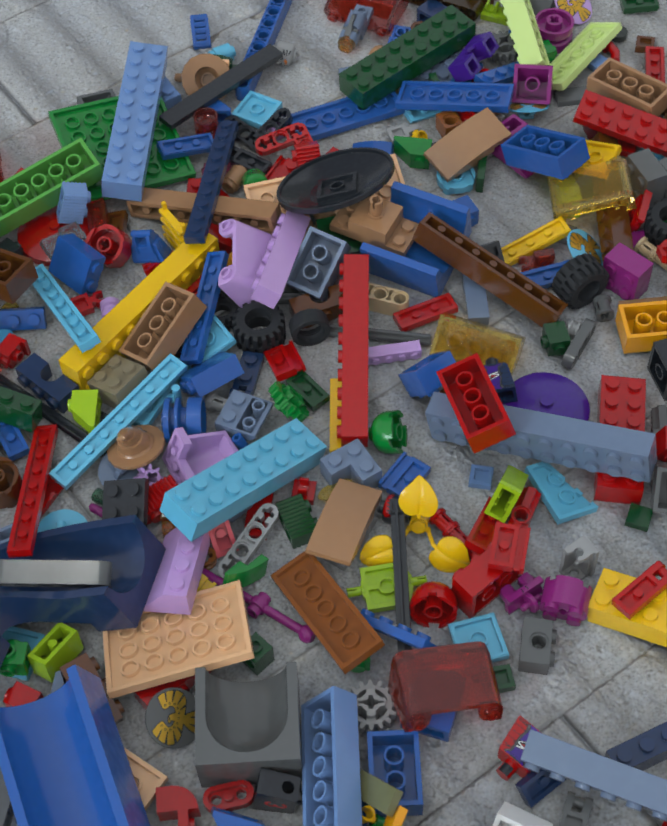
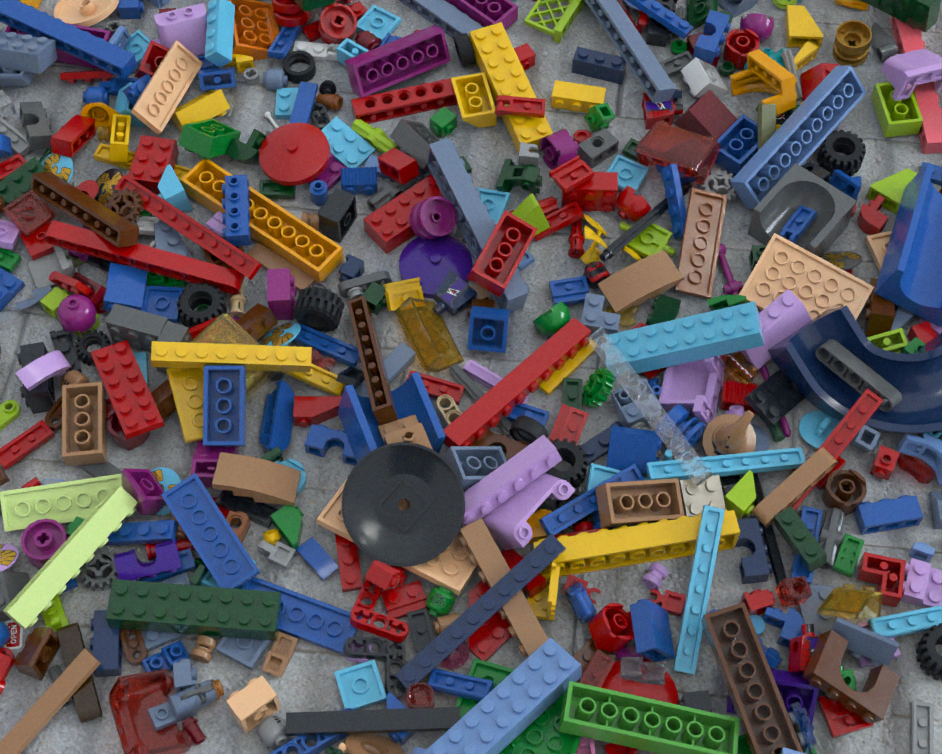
camera: 140 degrees left, 5 degrees up
(41, 440) = (794, 486): none -> medium nougat beam
(73, 202) = (613, 679): medium blue brick -> none
(224, 395) = (650, 407): none -> clear plate
(244, 707) = (798, 223): none -> blue hinge
(310, 48) = (253, 703): none -> light nougat brick
(323, 350) = (530, 411): none -> blue plate
(329, 89) = (280, 654): none -> medium nougat slope
(333, 24) = (192, 728): none -> dark red pin
(372, 36) = (184, 675): none -> sand blue brick
(461, 779) = (706, 116): none -> dark red slope
(495, 225) = (314, 409): none -> red slope
(509, 203) = (278, 417): none -> blue brick
(535, 353) = (399, 291): none -> yellow plate
(555, 537) = (528, 181): none -> dark green tile
(561, 675) = (599, 117): none -> green brick
(566, 651) = (581, 135): none -> red tile
(579, 172) = (251, 356): none -> yellow brick
(586, 405) = (433, 218): none -> magenta wheel
(603, 344) = (351, 269): none -> dark blue brick
(619, 690) = (576, 96): none -> yellow brick

